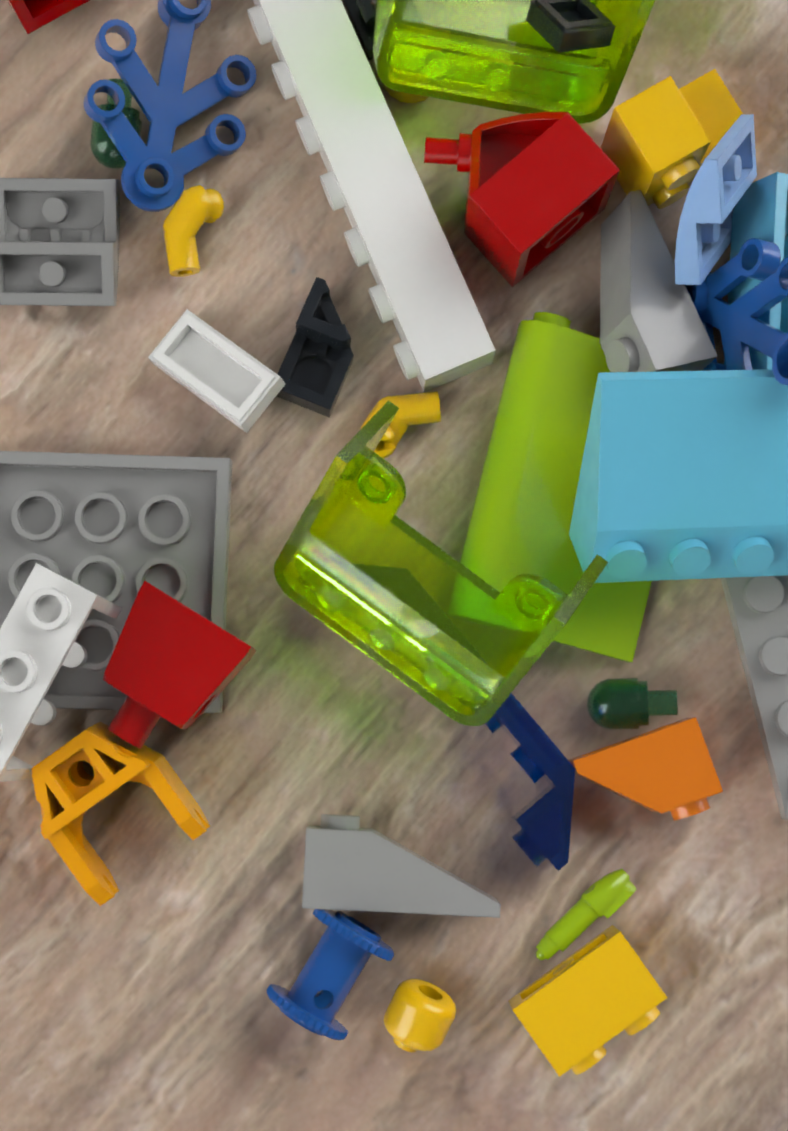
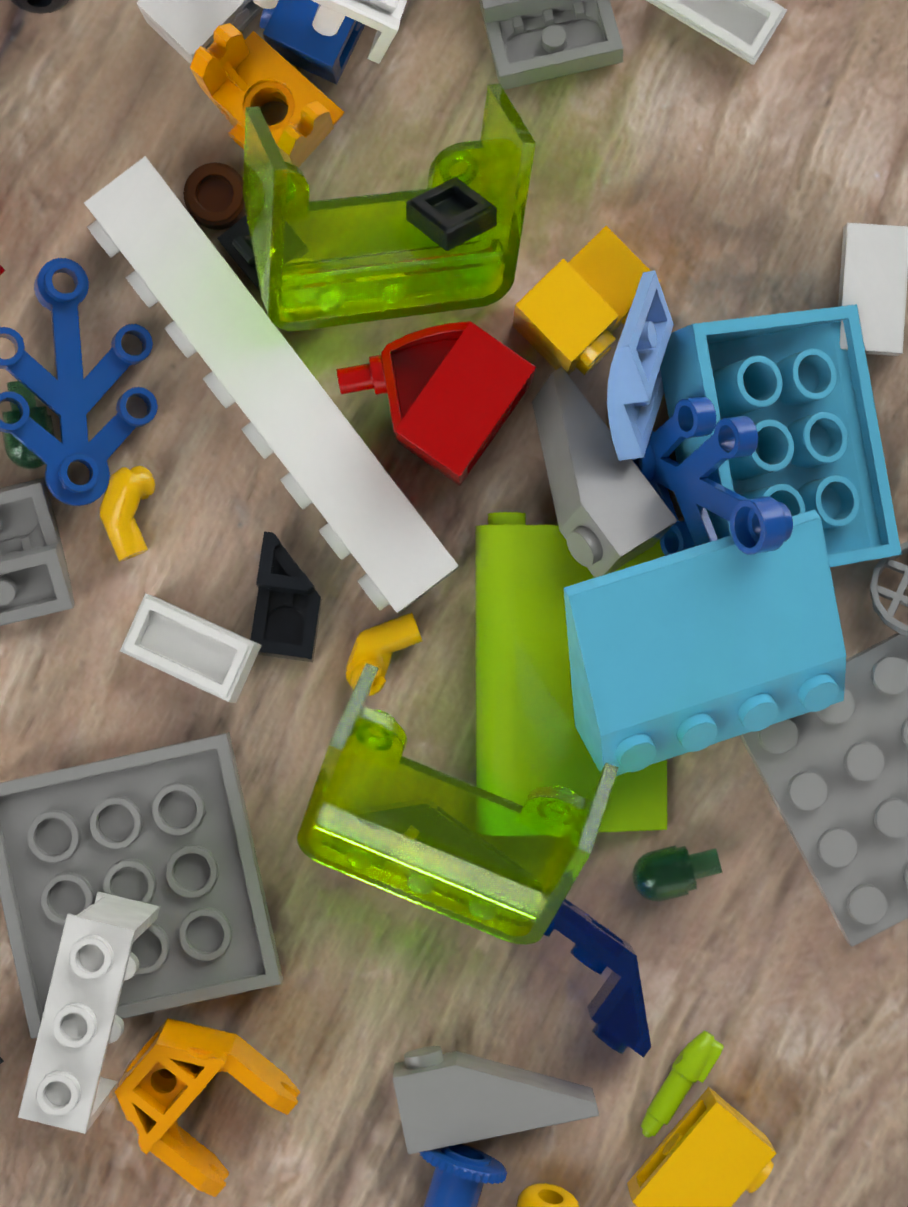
camera: 15 degrees left, 5 degrees up
(169, 665) = (220, 955): red torso -> none
(657, 769) = (711, 932): orange slope -> none

